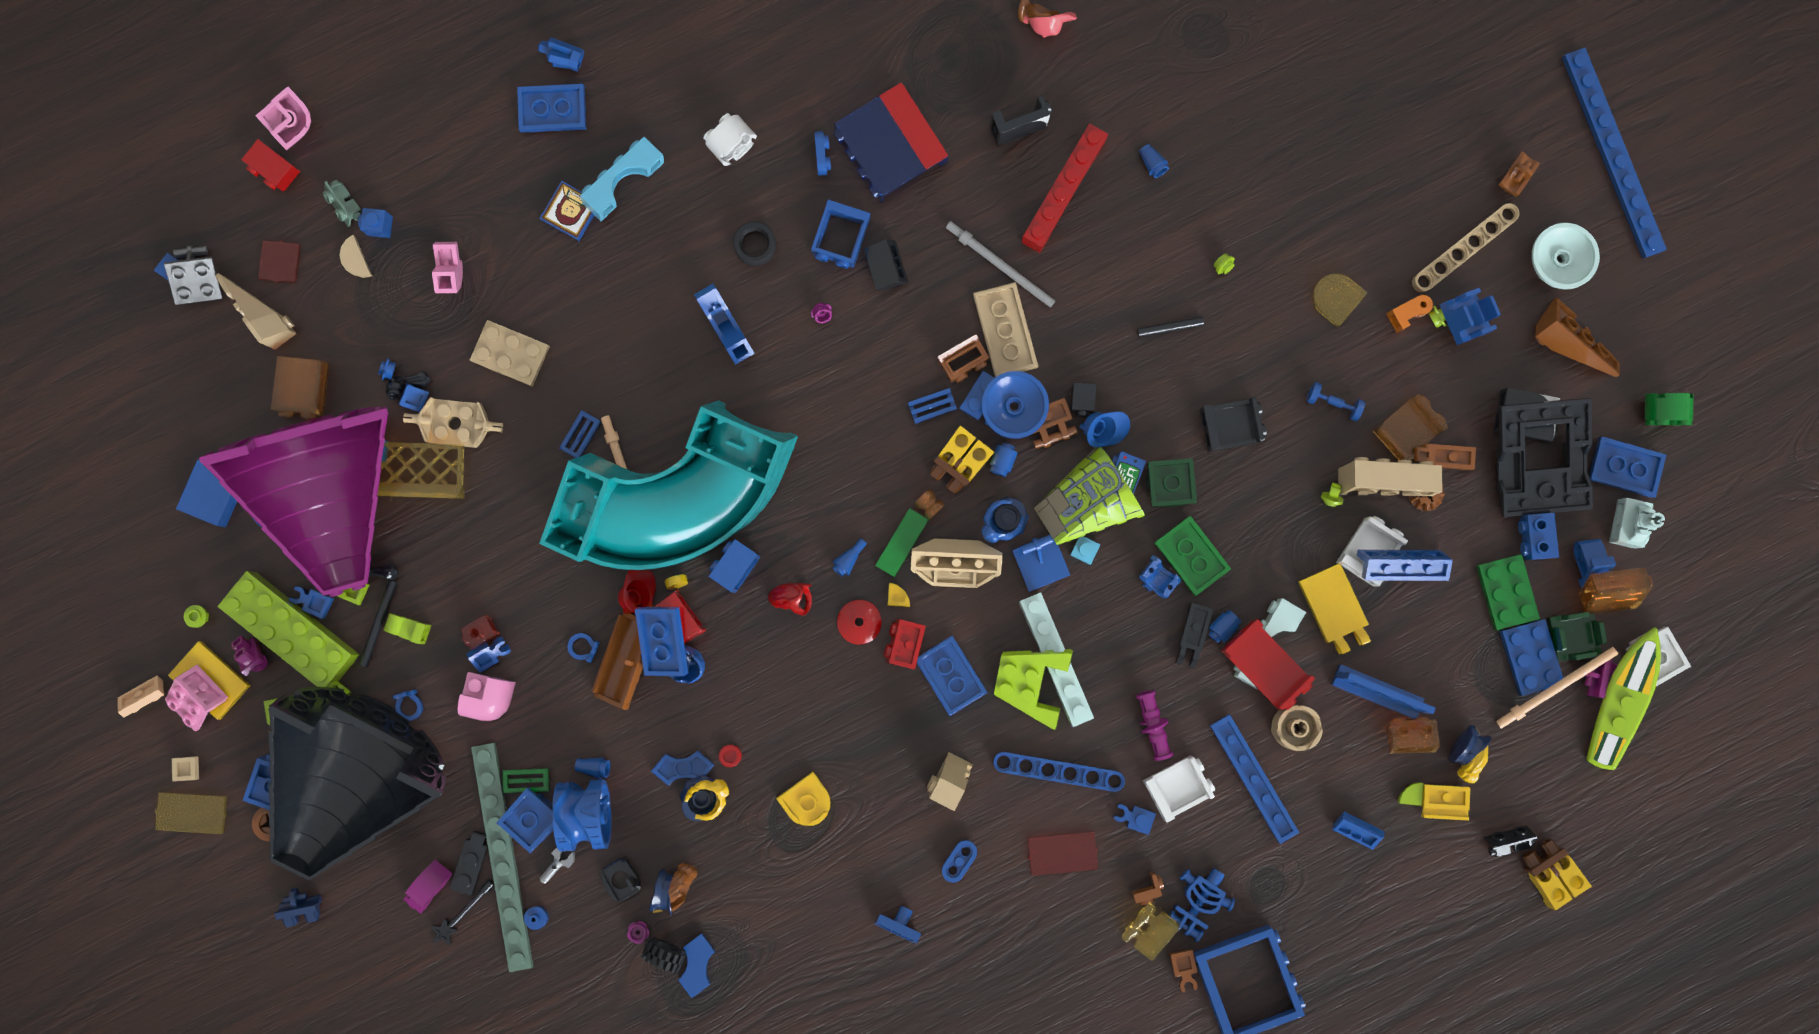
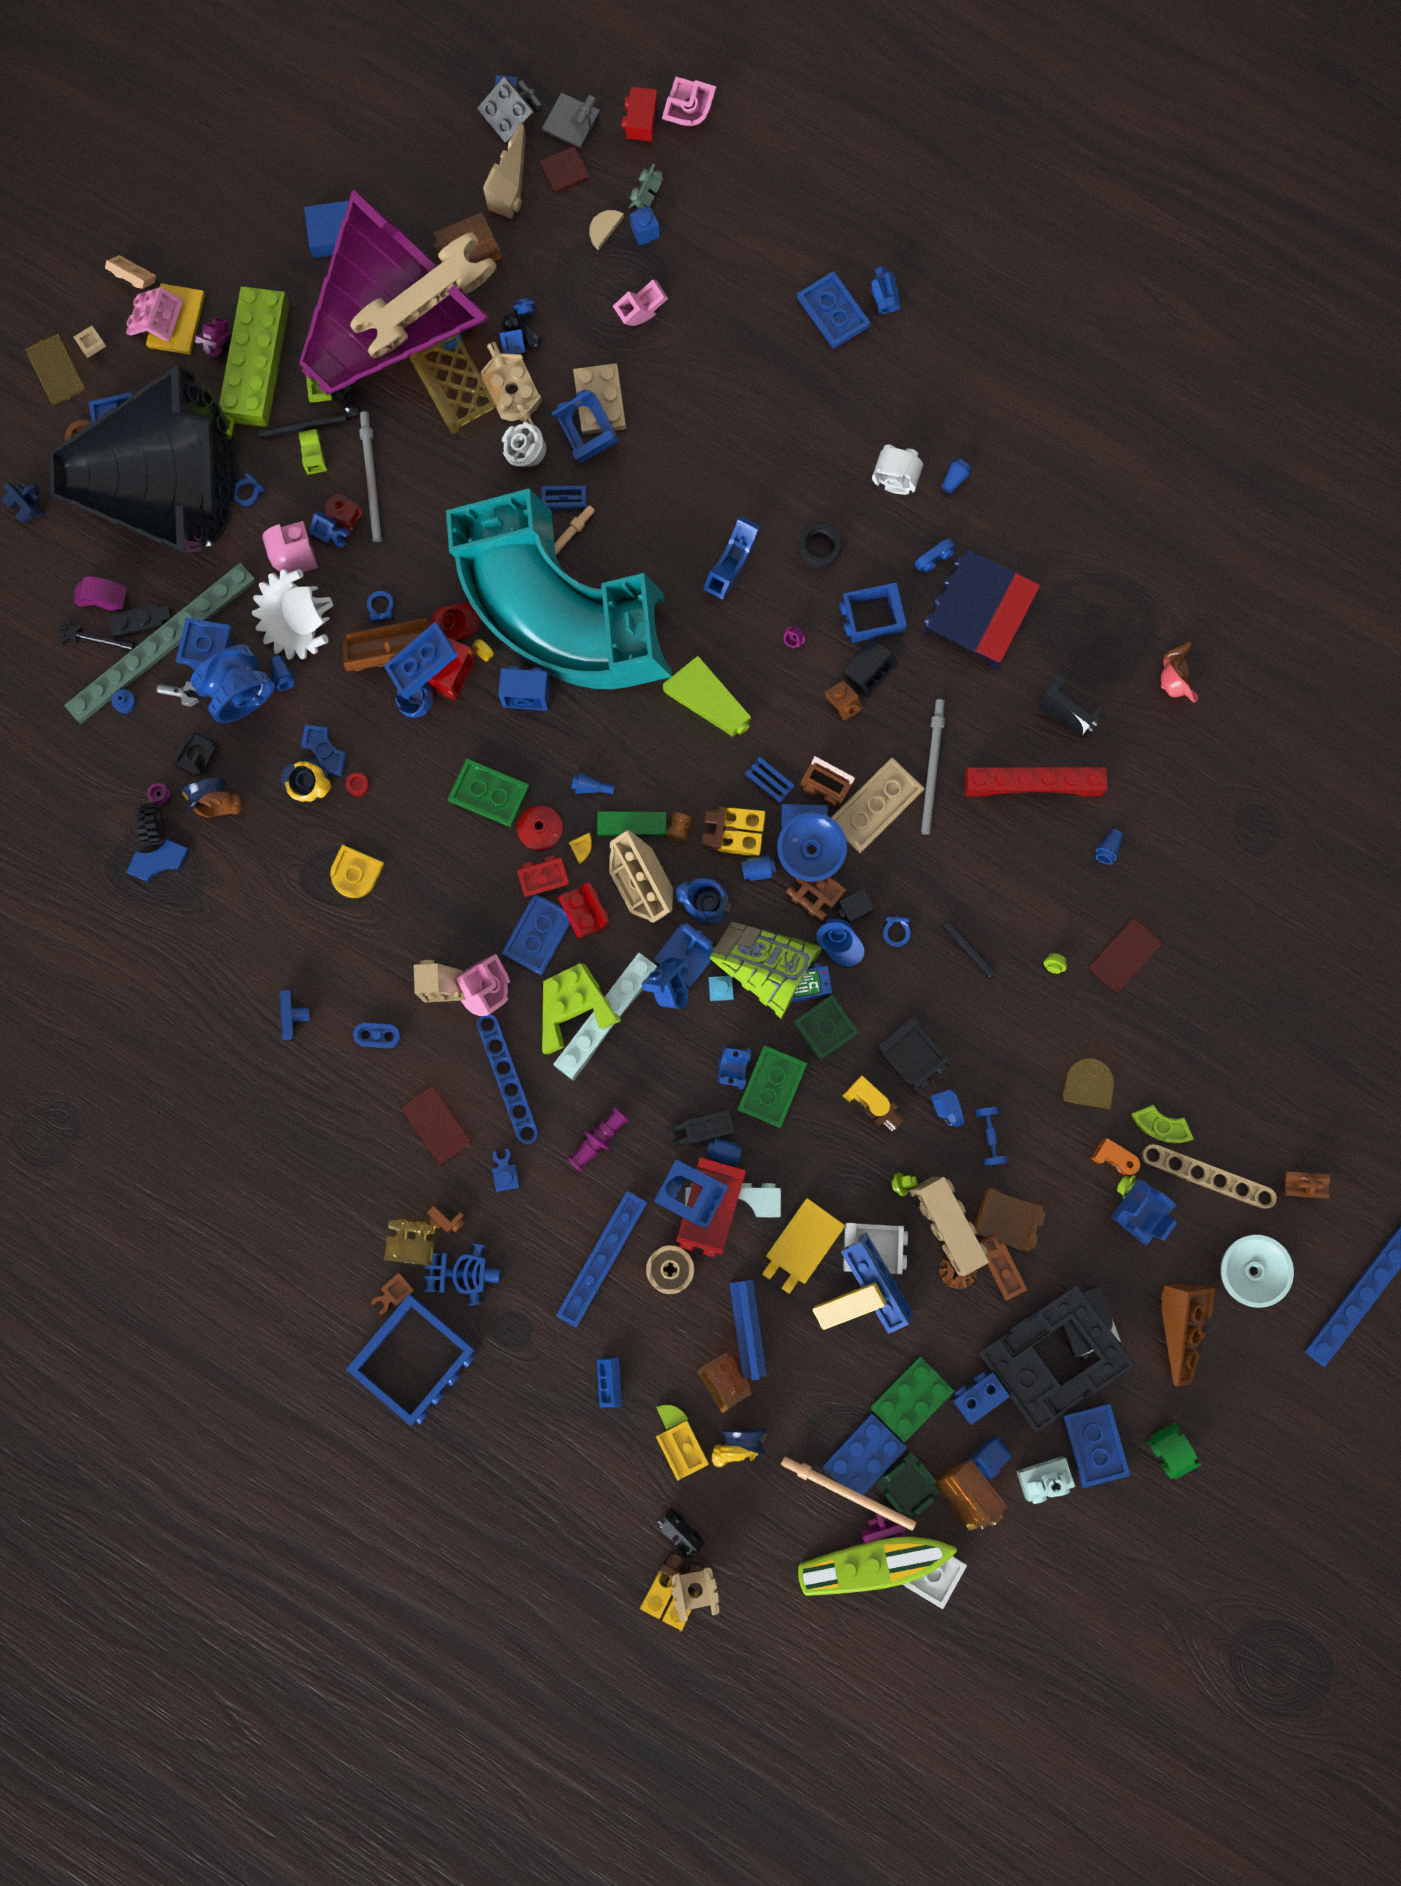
camera: 65 degrees right, 5 degrees down
(195, 616) = (223, 276): lime plate -> none
(236, 228) = (571, 119): none -> flat silver plate
(313, 602) = (289, 363): blue plate -> none
(328, 451) = (423, 295): none -> tan piece
(421, 573) = (366, 436): none -> light grey bar
(509, 392) = (564, 414): none -> blue panel
(515, 442) = (524, 445): none -> white cone
(545, 779) = (247, 640): green tile -> none
(548, 730) = (290, 615): none -> white piece
(567, 212) = (753, 377): tile -> none
(640, 159) = (833, 406): medium azure arch -> none
(761, 94) = (956, 475): none -> blue cone
(789, 595) = (526, 750): red piece -> none
(805, 648) = (488, 793): none -> green plate
(830, 415) = (705, 695): none -> lime slope
(900, 303) = (844, 699): none -> dark orange bracket
(954, 625) = (584, 910): none -> red bracket
(971, 746) = (484, 986): none -> bright pink brick
(1059, 591) = (668, 983): none -> blue pin
(1116, 366) = (891, 919): none -> blue piece
(1179, 787) = (554, 1195): white panel -> none
(1248, 204) = (1125, 956): none -> clear red piece
(1258, 480) = (875, 1103): none -> yellow hips
(1264, 665) = (707, 1202): none -> blue panel
(1292, 422) = (948, 1107): none -> blue rock
(1404, 261) = (1161, 1127): none -> lime tile
(1409, 598) = (849, 1306): none -> tile
(1578, 848) = (685, 1601): none -> tan piece

